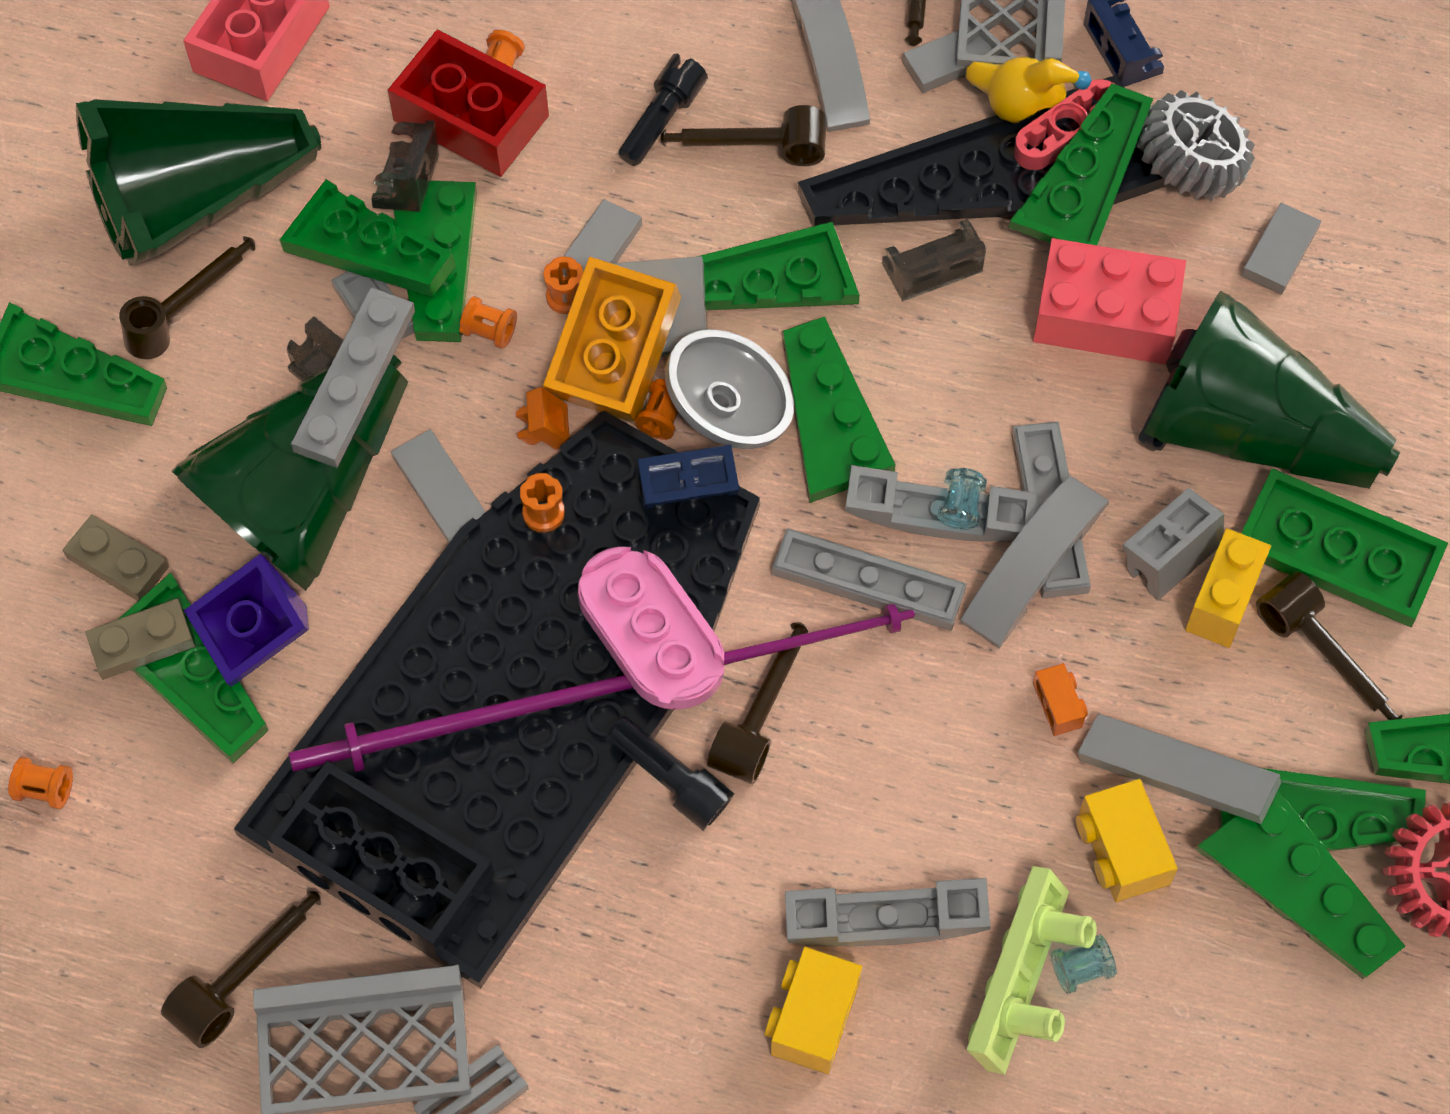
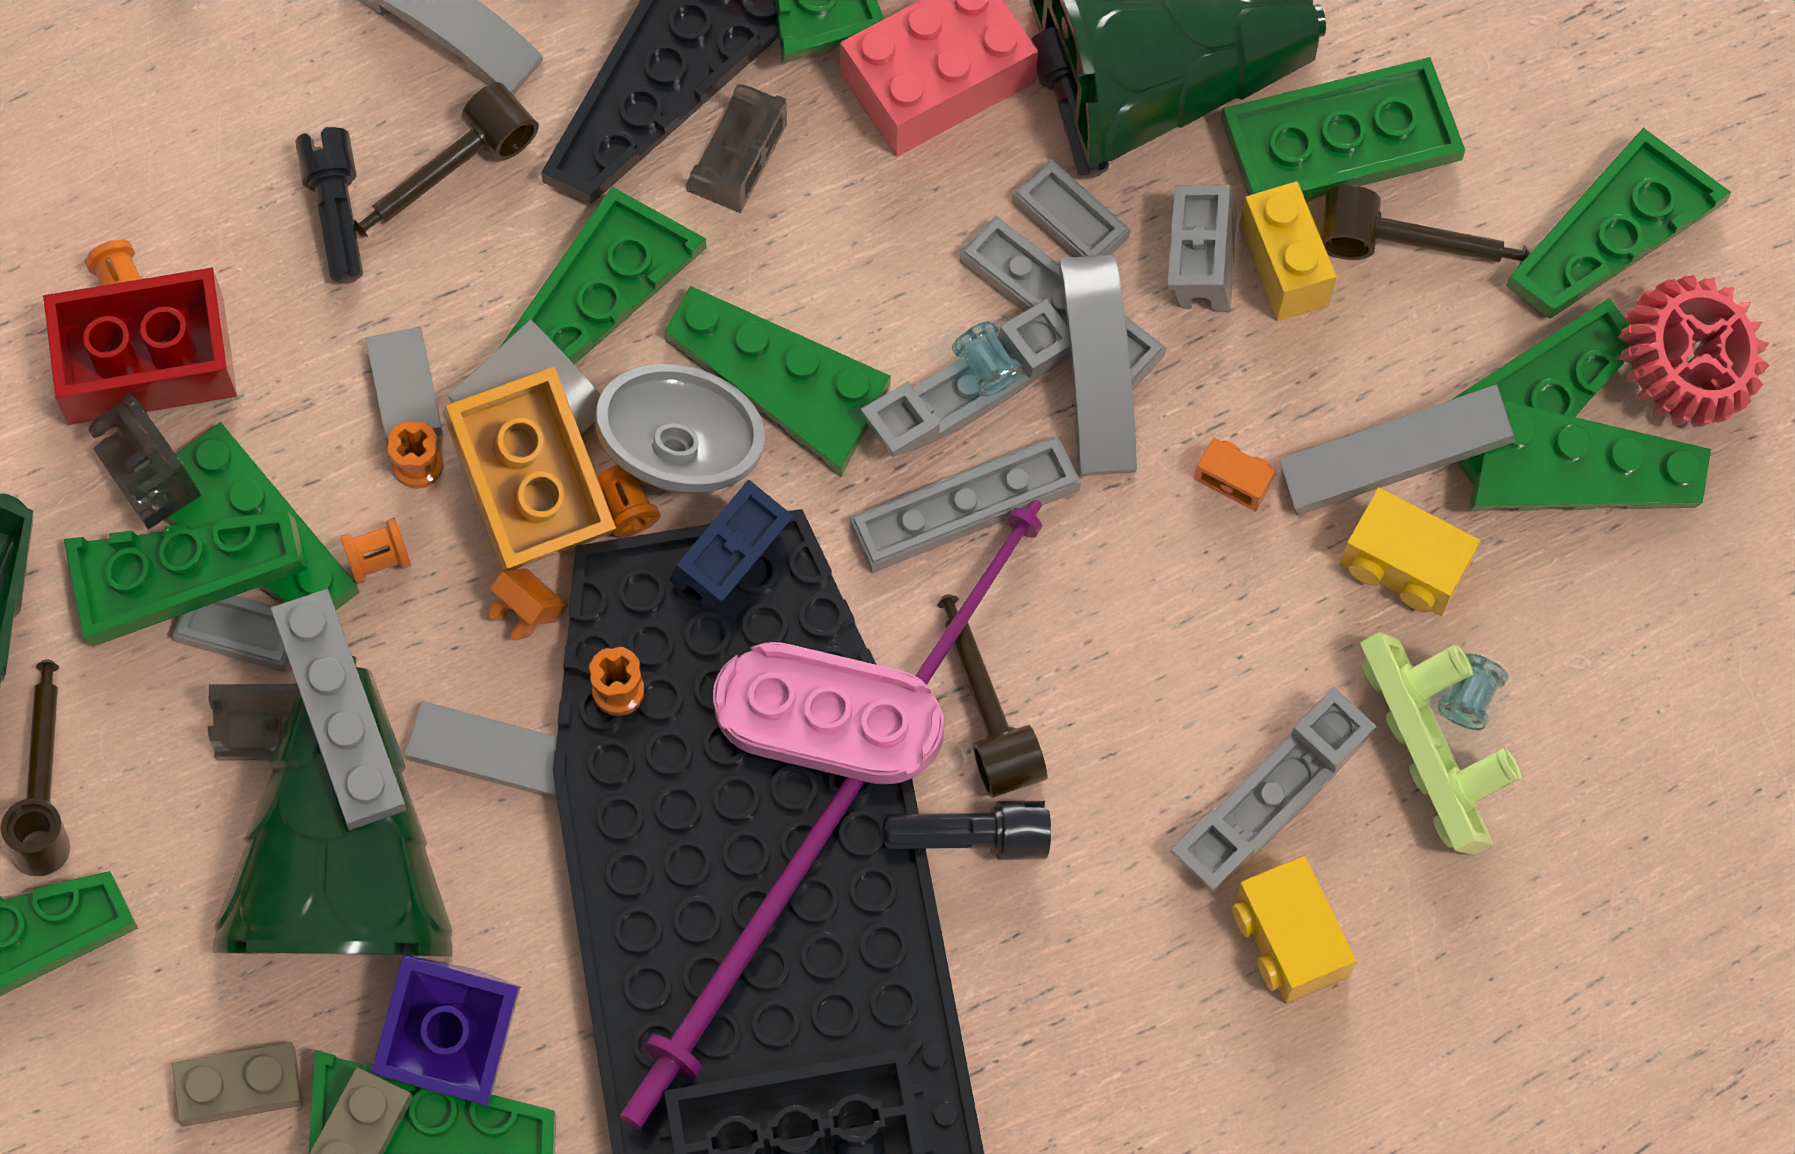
camera: 45 degrees left, 5 degrees up
(1110, 458) = (1070, 213): none -> light grey tile

